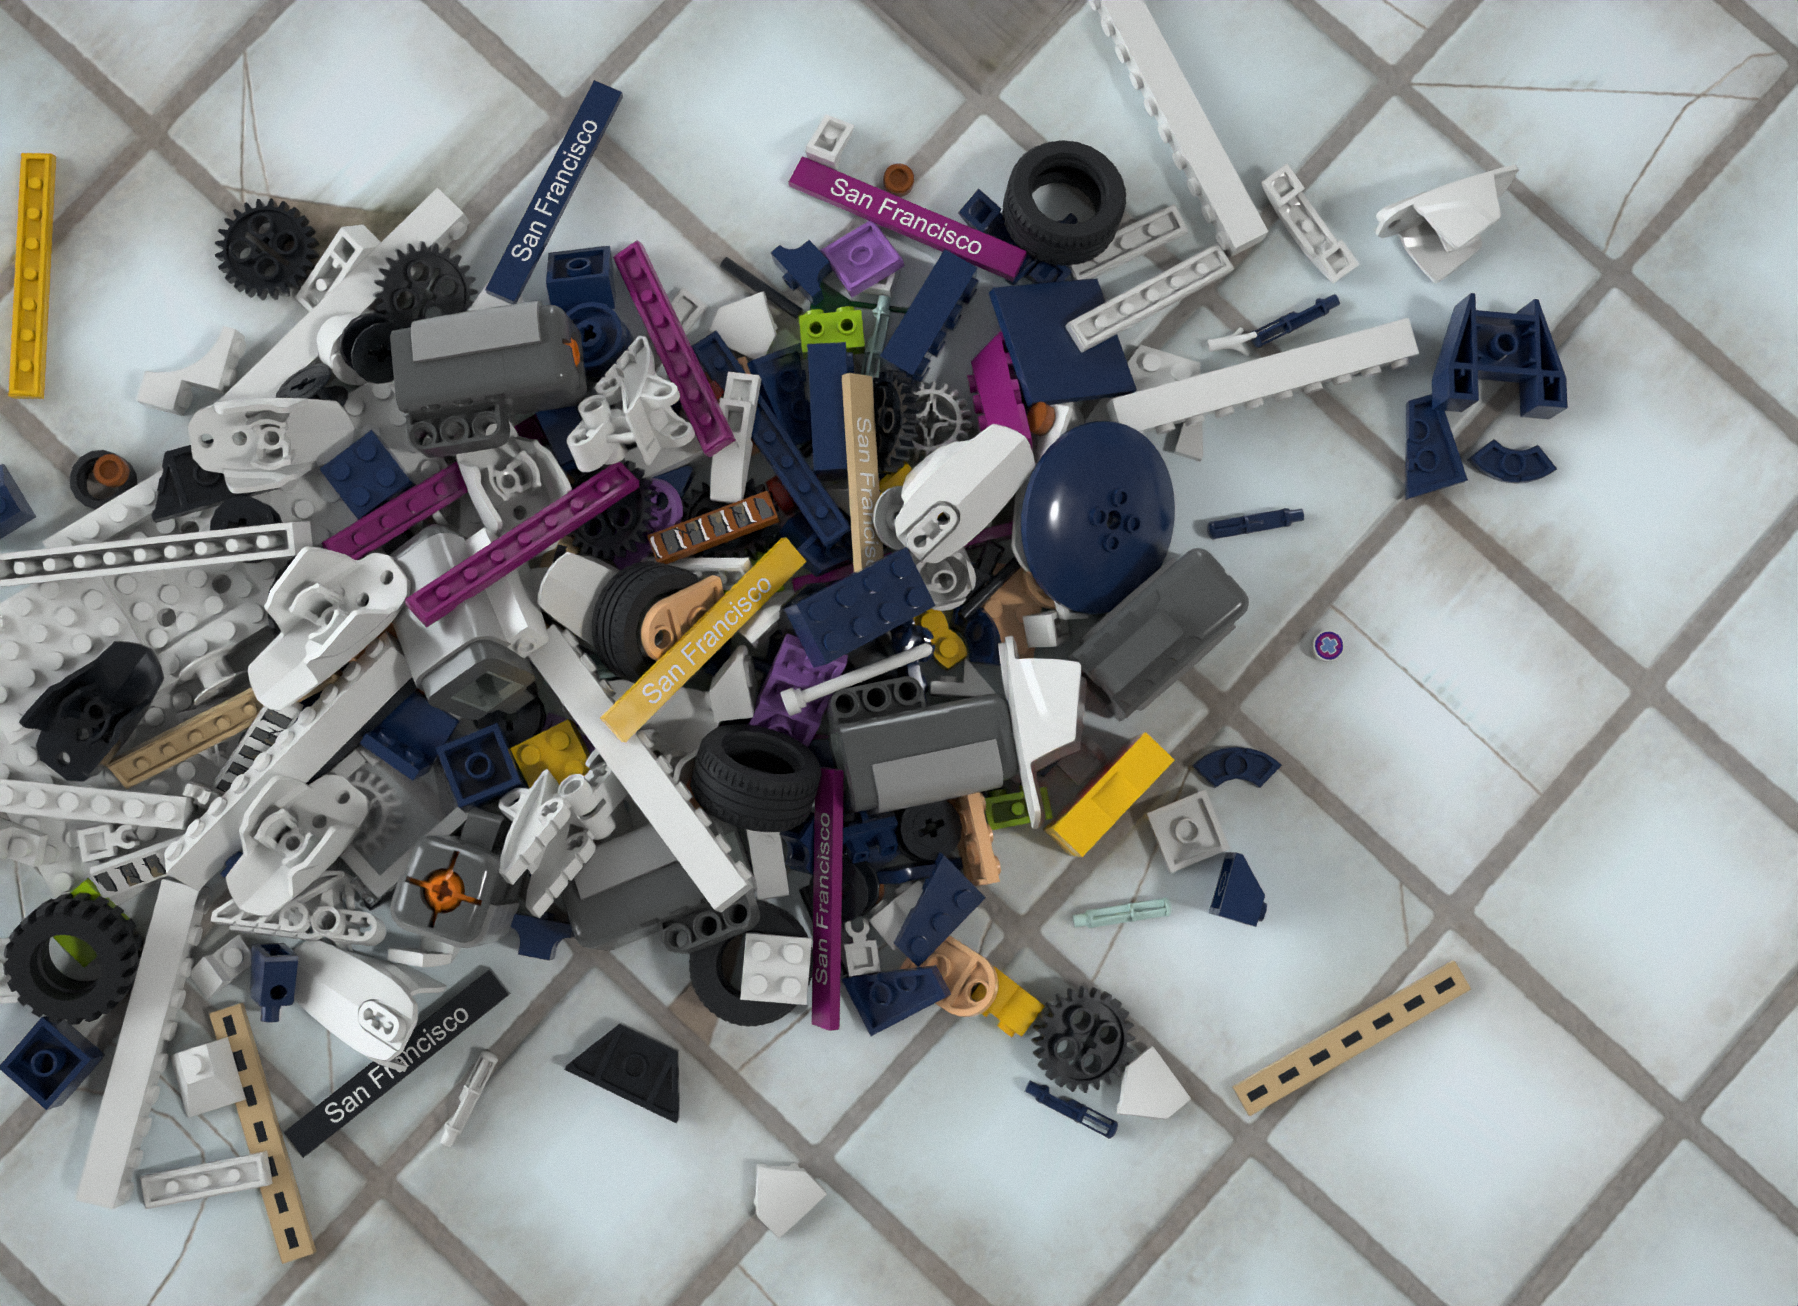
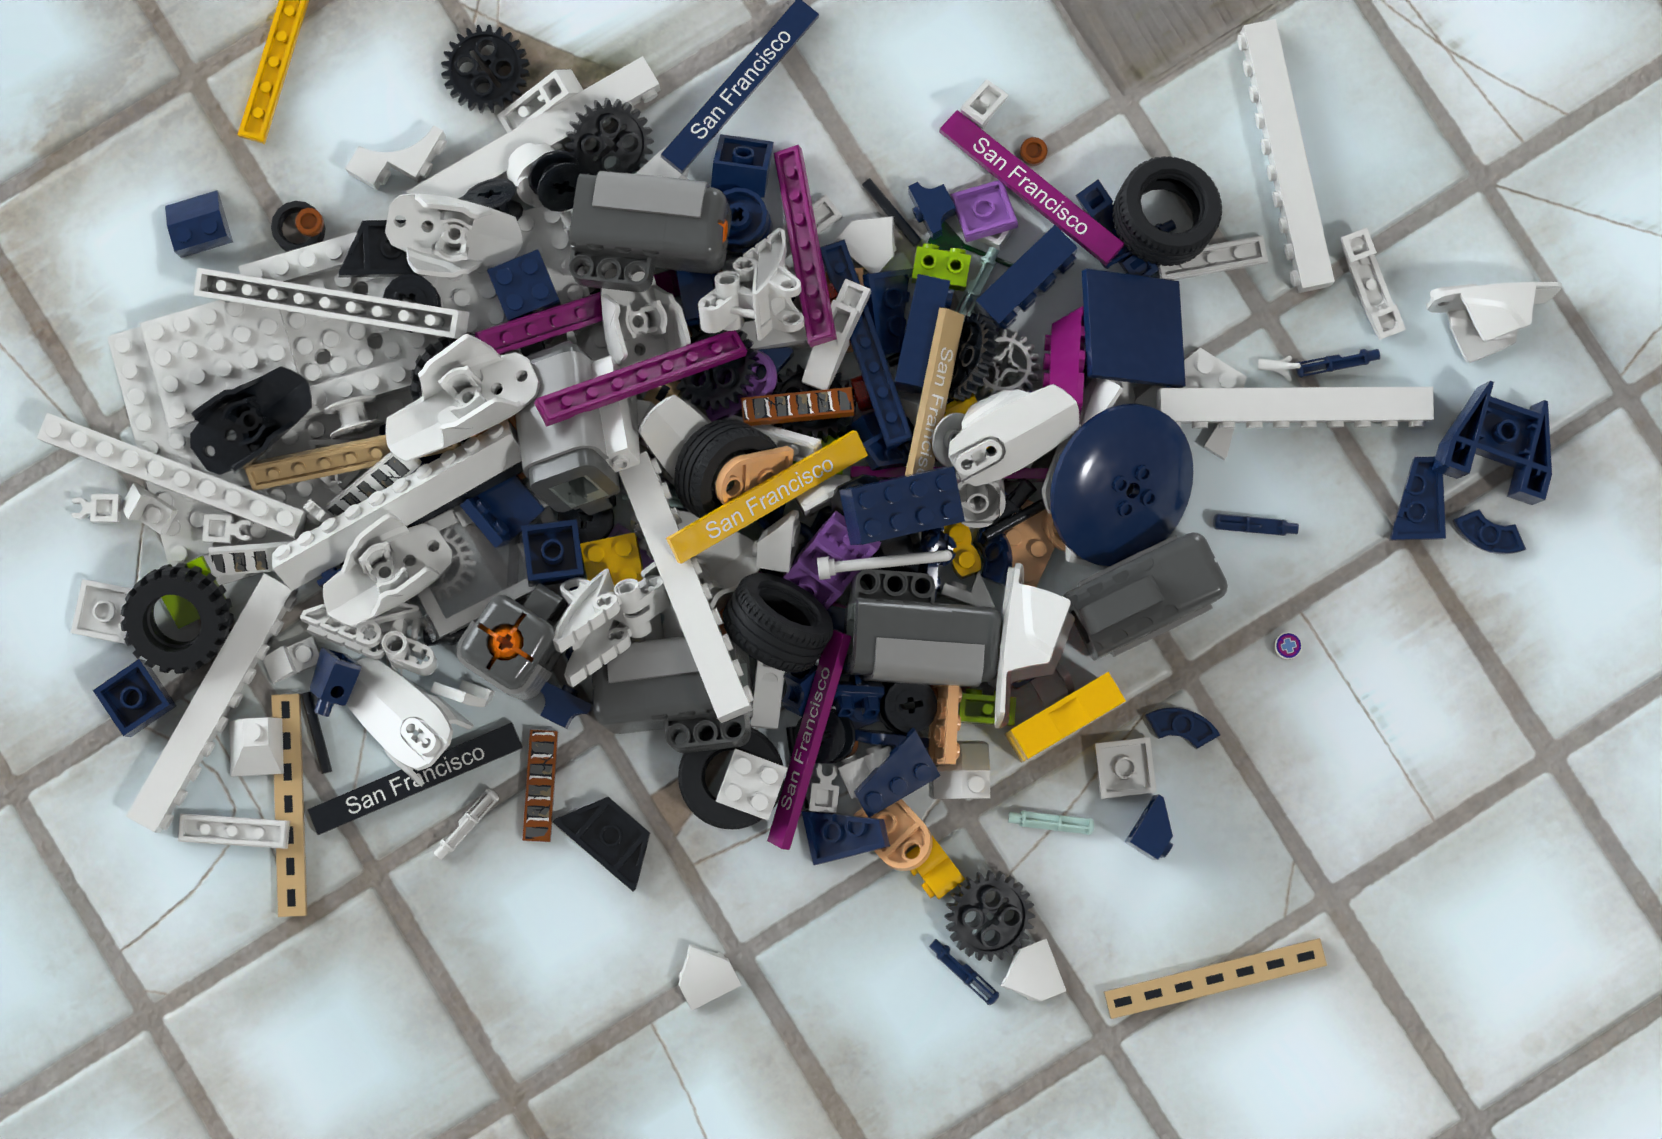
camera: 20 degrees right, 0 degrees up
(273, 1043) = (316, 732): none -> black bar
(541, 1031) = (540, 785): none -> tile
(1018, 889) = (967, 777): none -> white slope
(1041, 418) = (1095, 389): dark orange tile -> none
(1046, 629) = (1053, 566): white slope -> none
(1149, 297) = (1218, 310): white tile -> none

